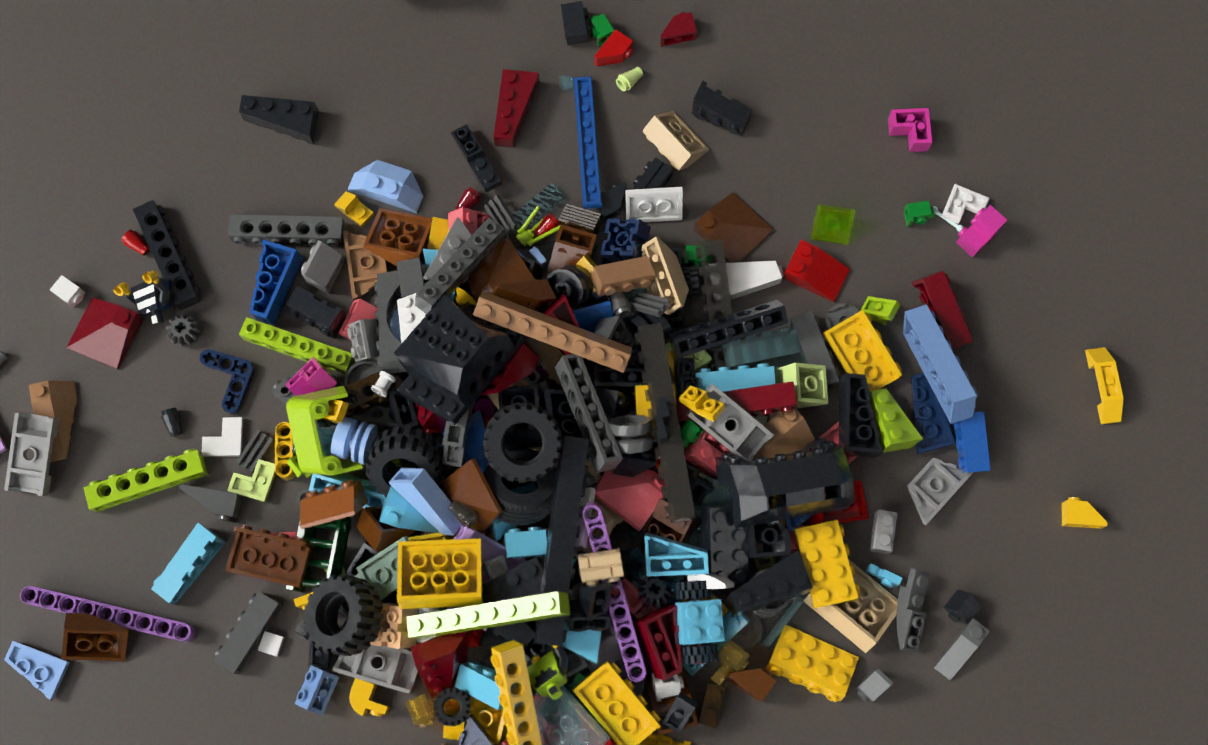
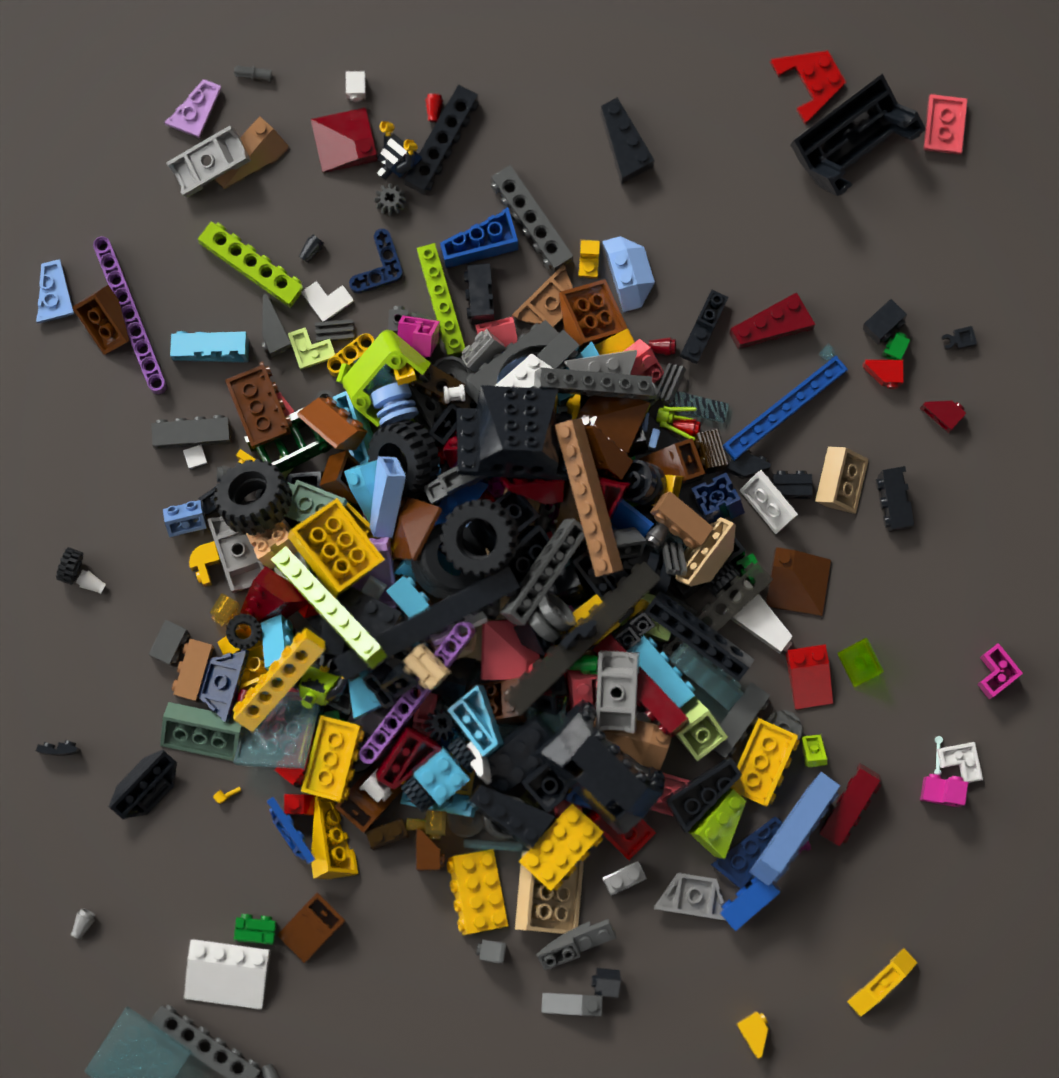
camera: 50 degrees right, 5 degrees up
(322, 267) = (520, 271): light grey slope -> none
(466, 516) = (394, 534): clear smoke cone -> none
(628, 79) = (869, 403): yellowish green cone -> none
(679, 712) = (361, 810): black slope -> none
(700, 403) = (615, 657): yellow slope -> none
(888, 578) = (588, 908): medium azure plate -> none
(918, 213) = (924, 728): green brick -> none

